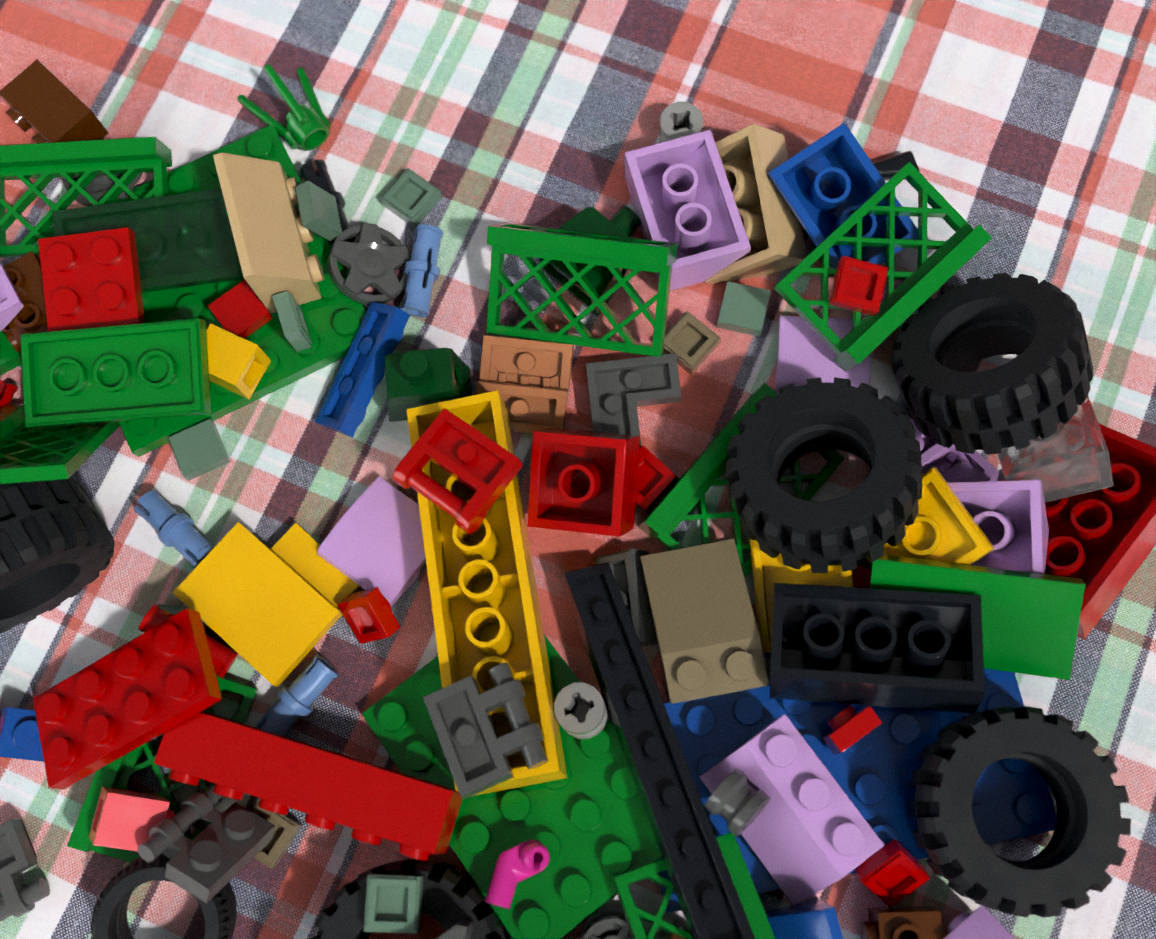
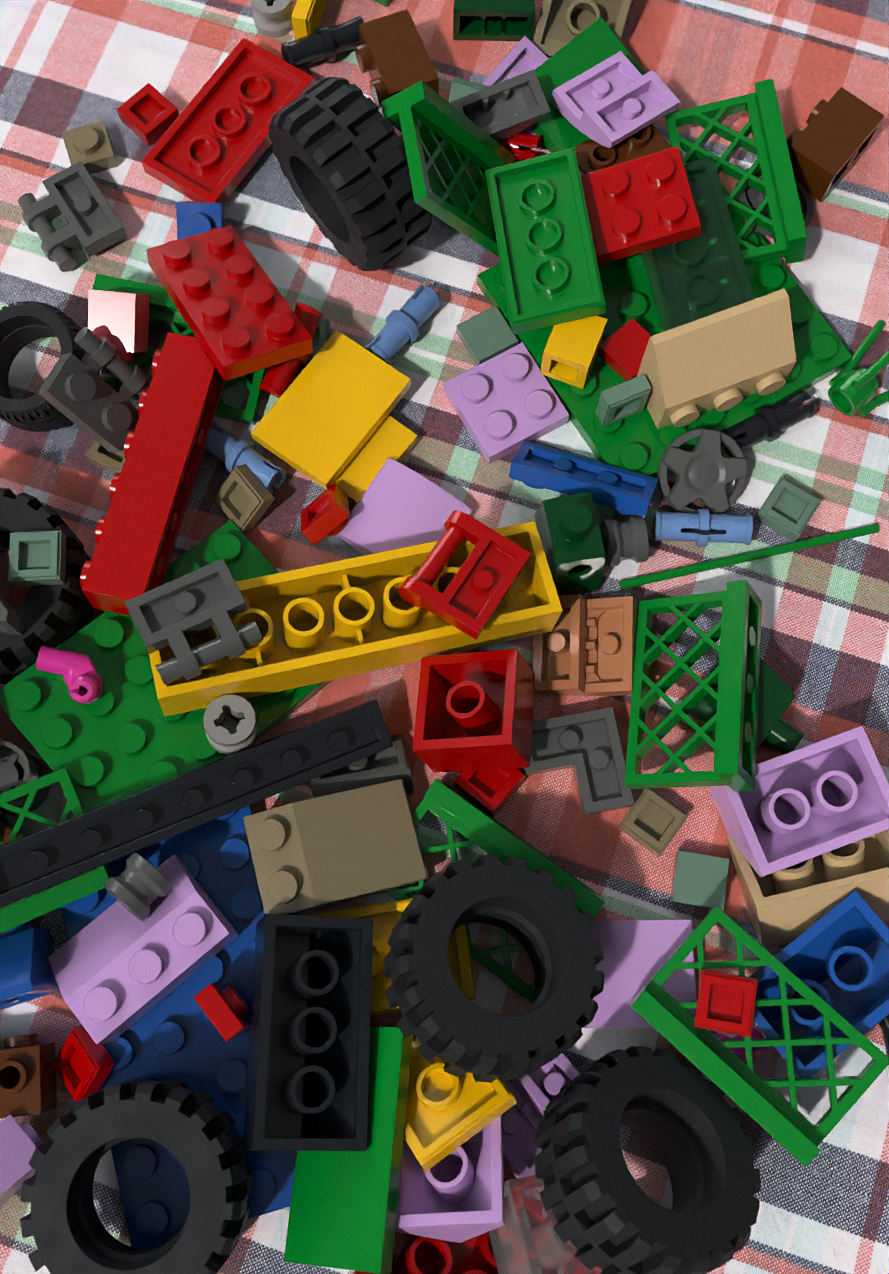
camera: 75 degrees right, 0 degrees up
(271, 437) = (505, 403): none -> lavender plate
(318, 210) = (749, 409): sand green tile -> none
(340, 698) = (243, 498): none -> dark tan tile
(427, 332) = (625, 540): none -> dark grey wheel
(452, 239) = (748, 556): none -> green axle

